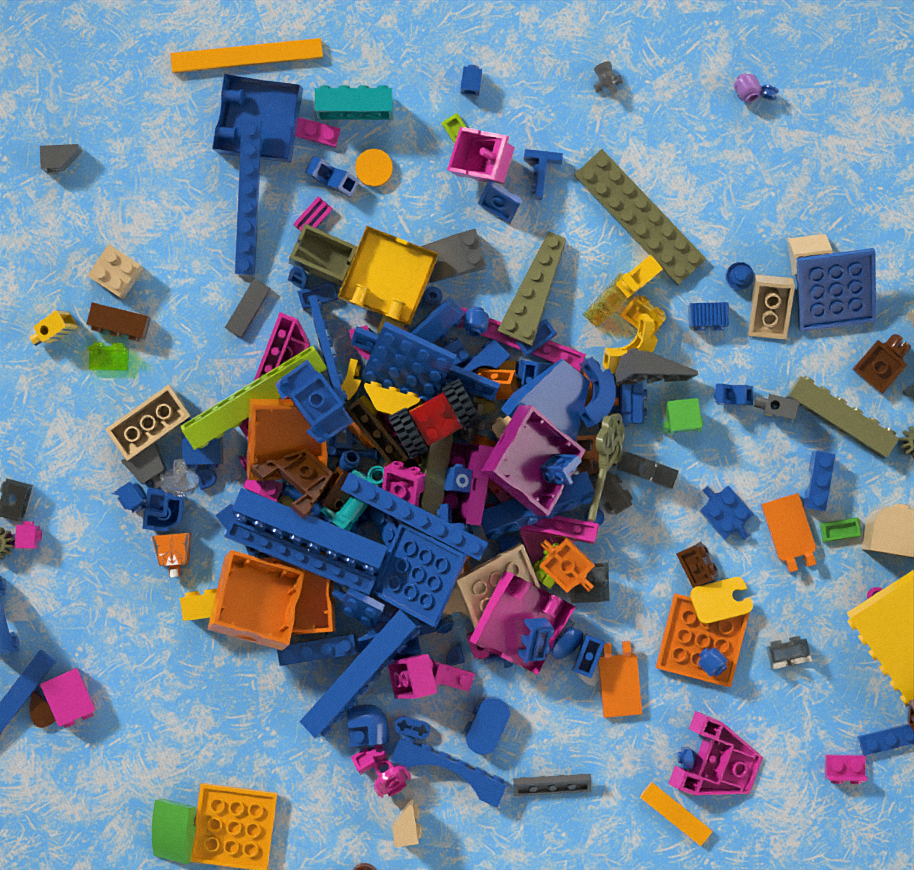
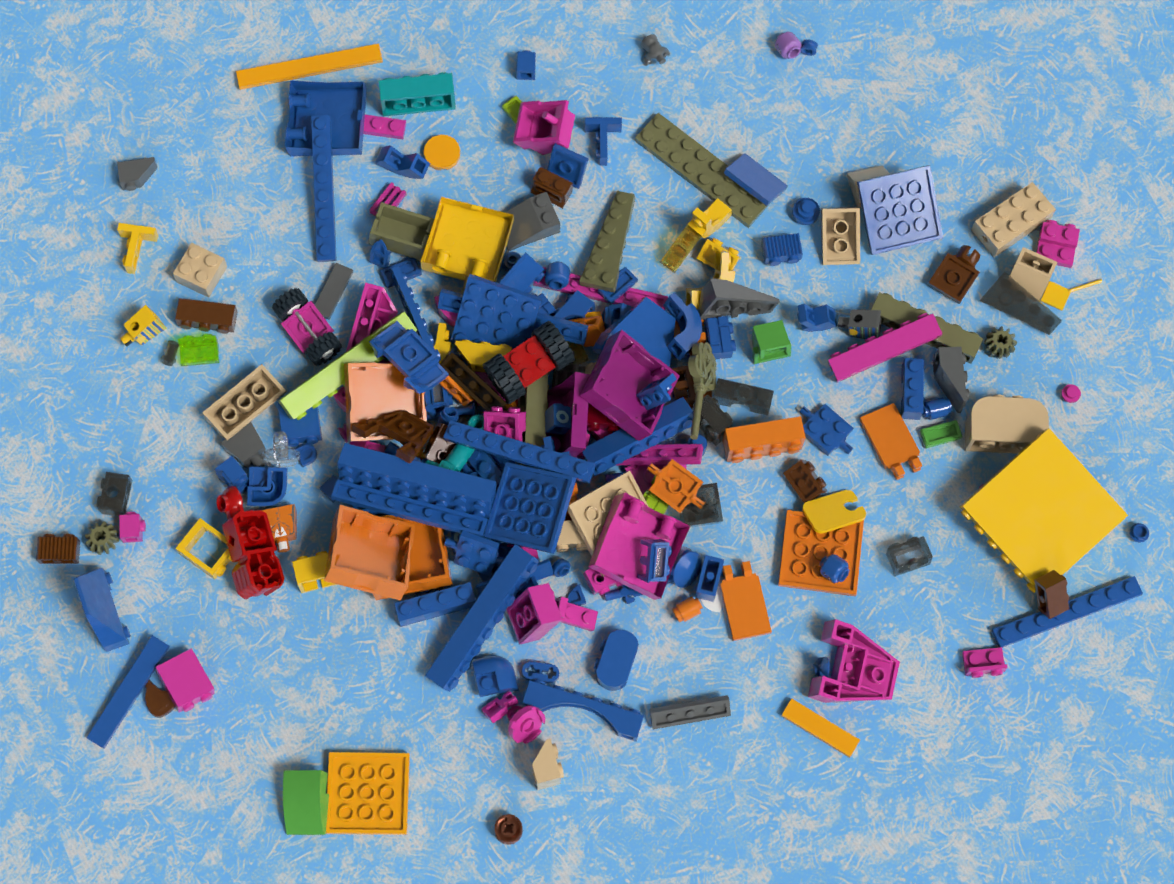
camera: 10 degrees left, 15 degrees down
(51, 235) = (135, 236): none -> yellow bracket
(79, 357) = (170, 353): none -> clear smoke pin
(85, 554) = (192, 538): none -> yellow window
(140, 574) = (250, 545): none -> red brick
(217, 346) = (307, 326): none -> plate
(483, 221) = (555, 186): none -> reddish brown window
(562, 682) = (687, 609): none -> orange brick
(662, 519) = (763, 439): none -> orange brick
(692, 236) = (755, 179): none -> blue tile
(798, 437) = (884, 347): none -> dark pink brick
(840, 504) = (937, 408): none -> blue brick
(859, 471) = (951, 376): none -> dark grey slope

